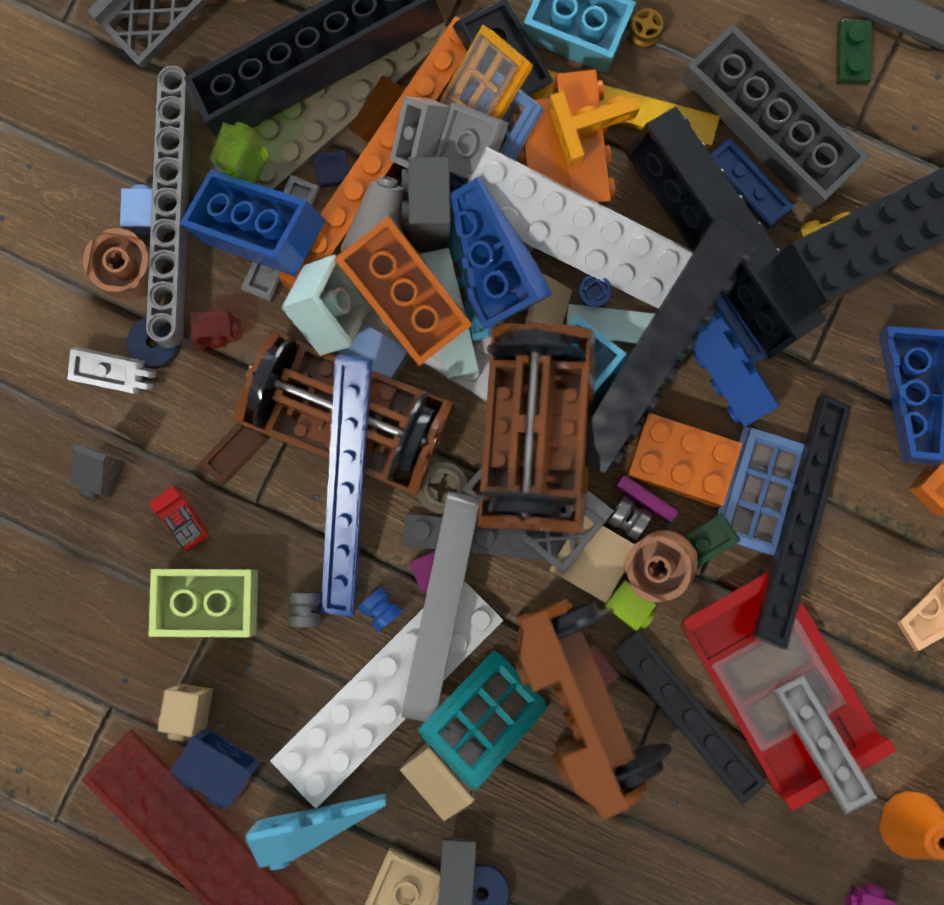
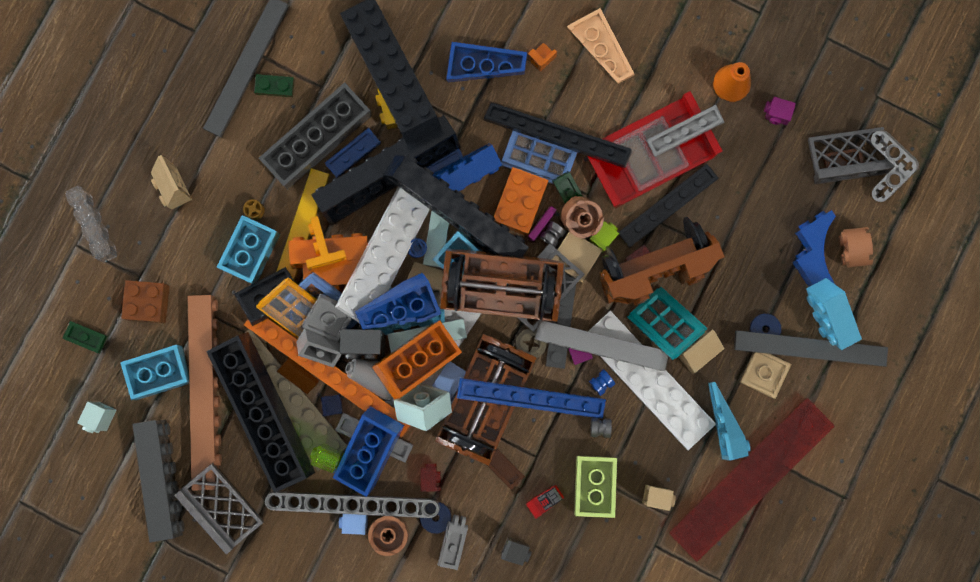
camera: 85 degrees left, 0 degrees up
(215, 768) = (692, 479): dark blue brick -> none

